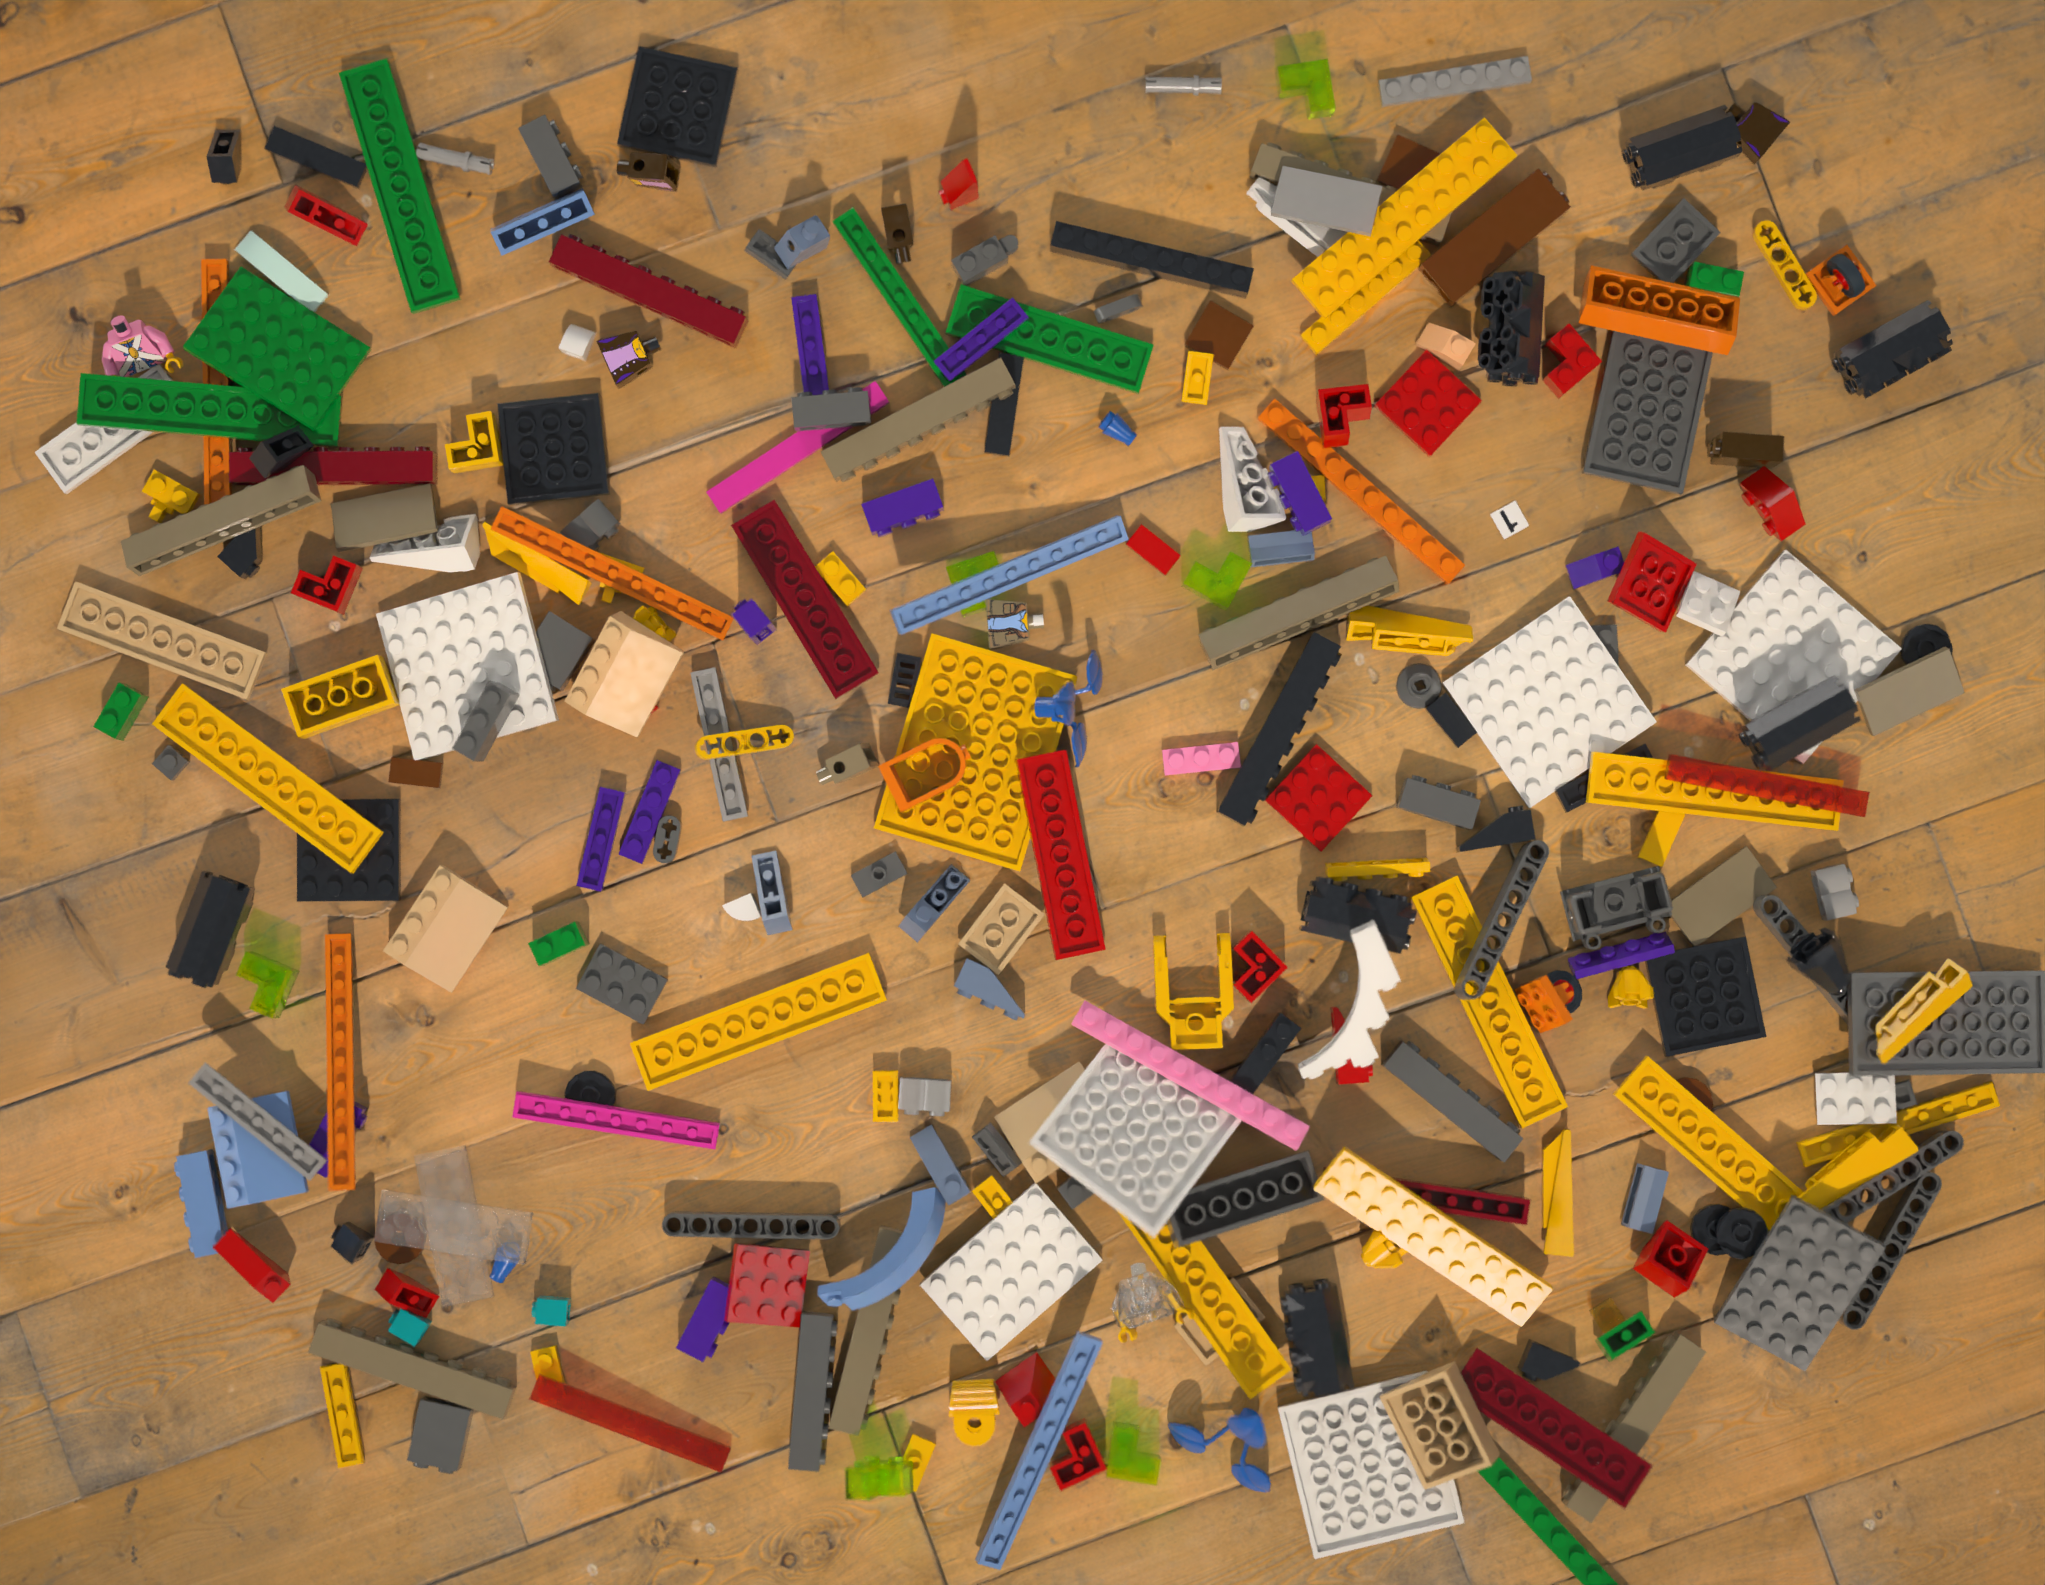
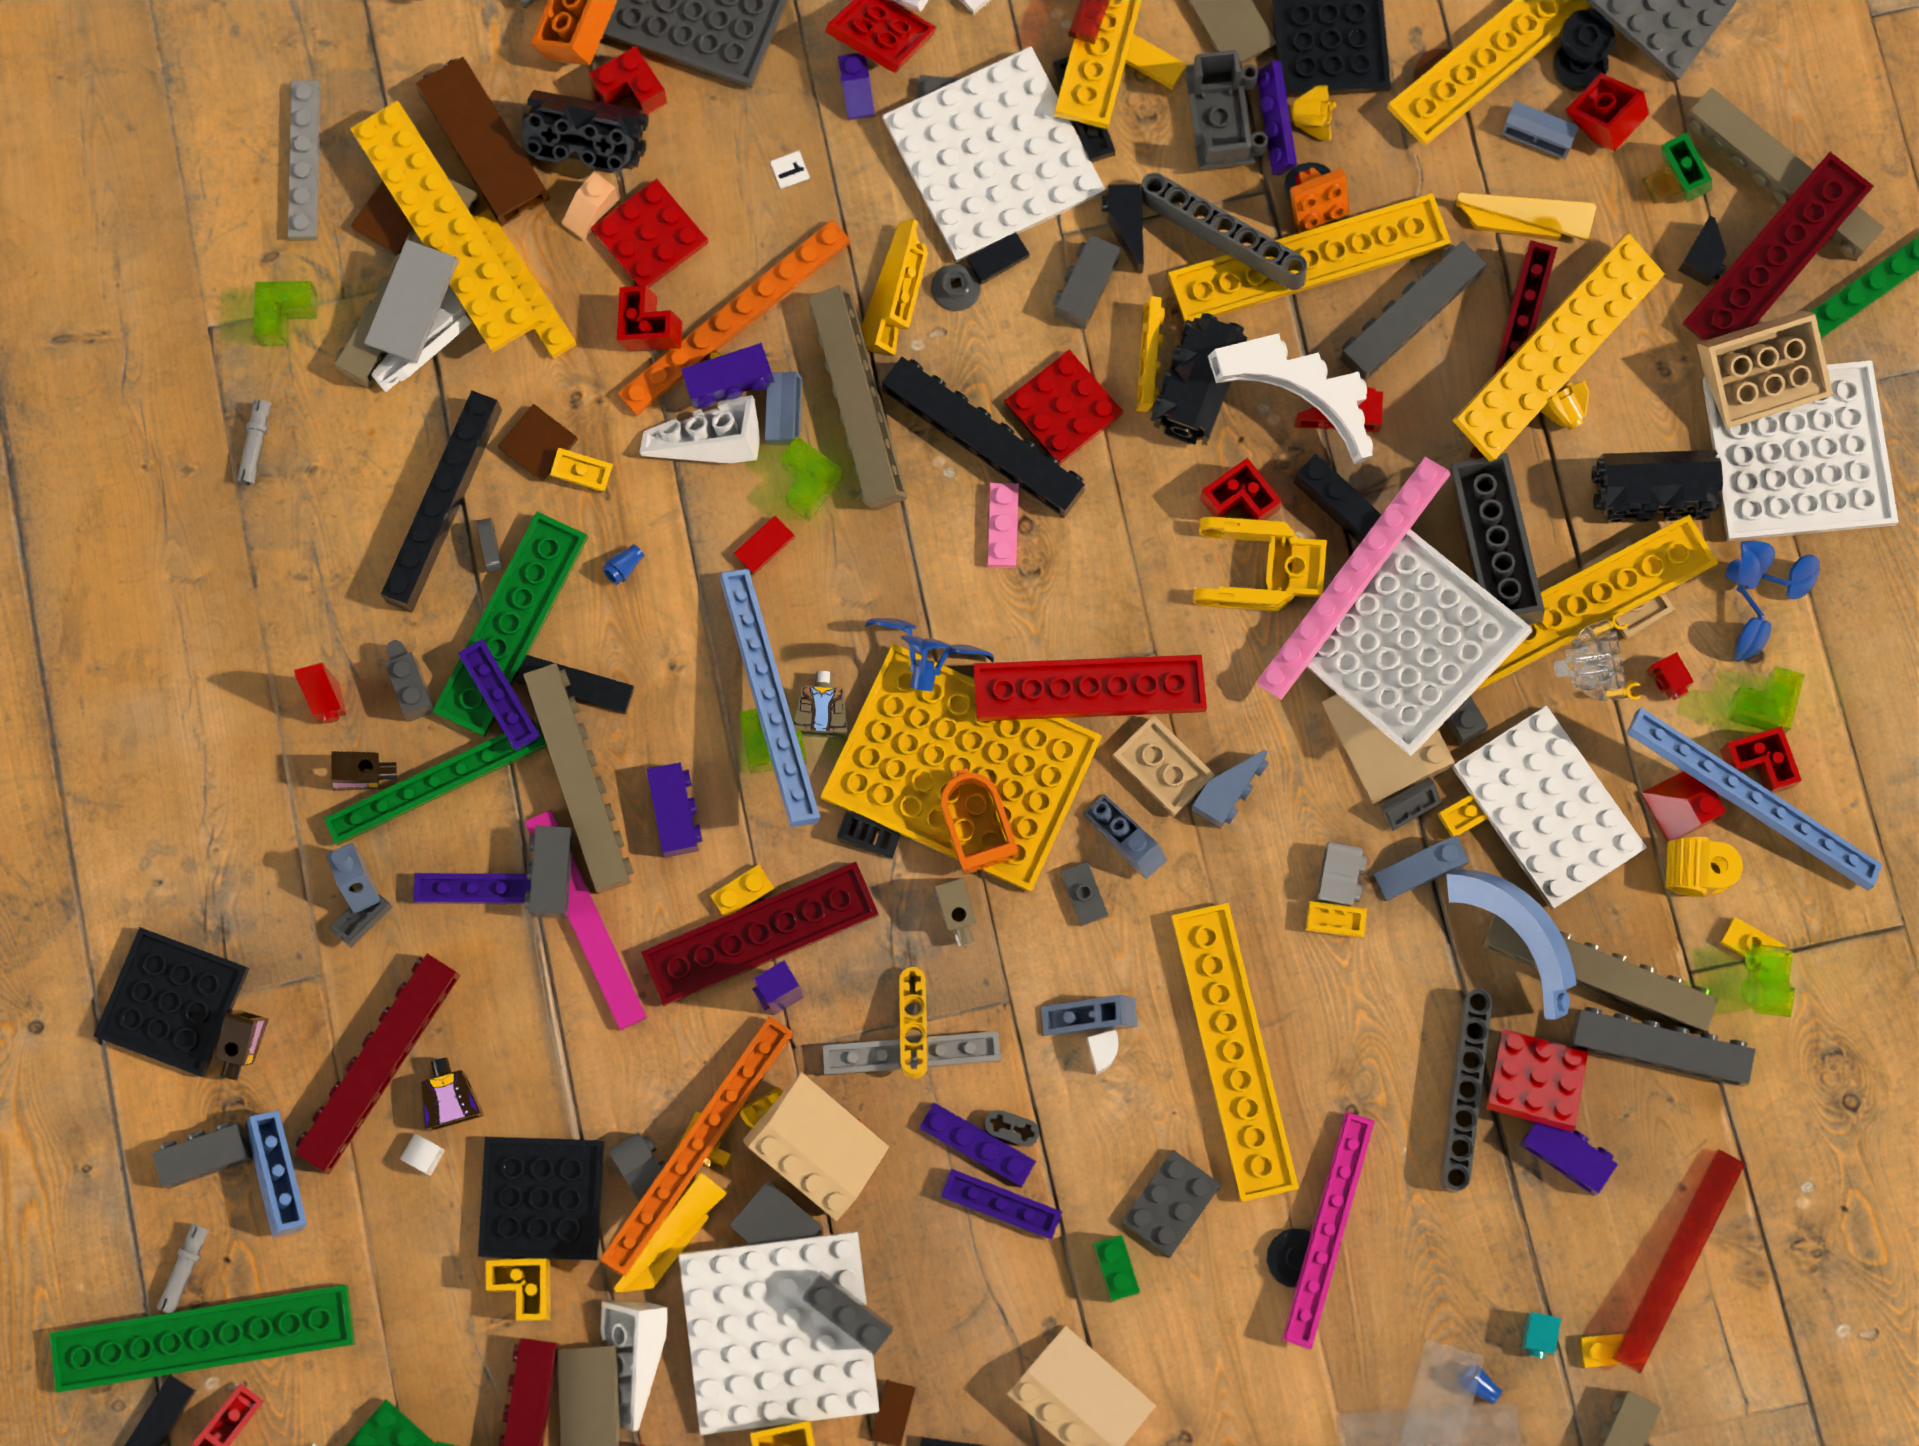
camera: 80 degrees left, 10 degrees down
(1143, 1368) = (1671, 676): none -> red brick

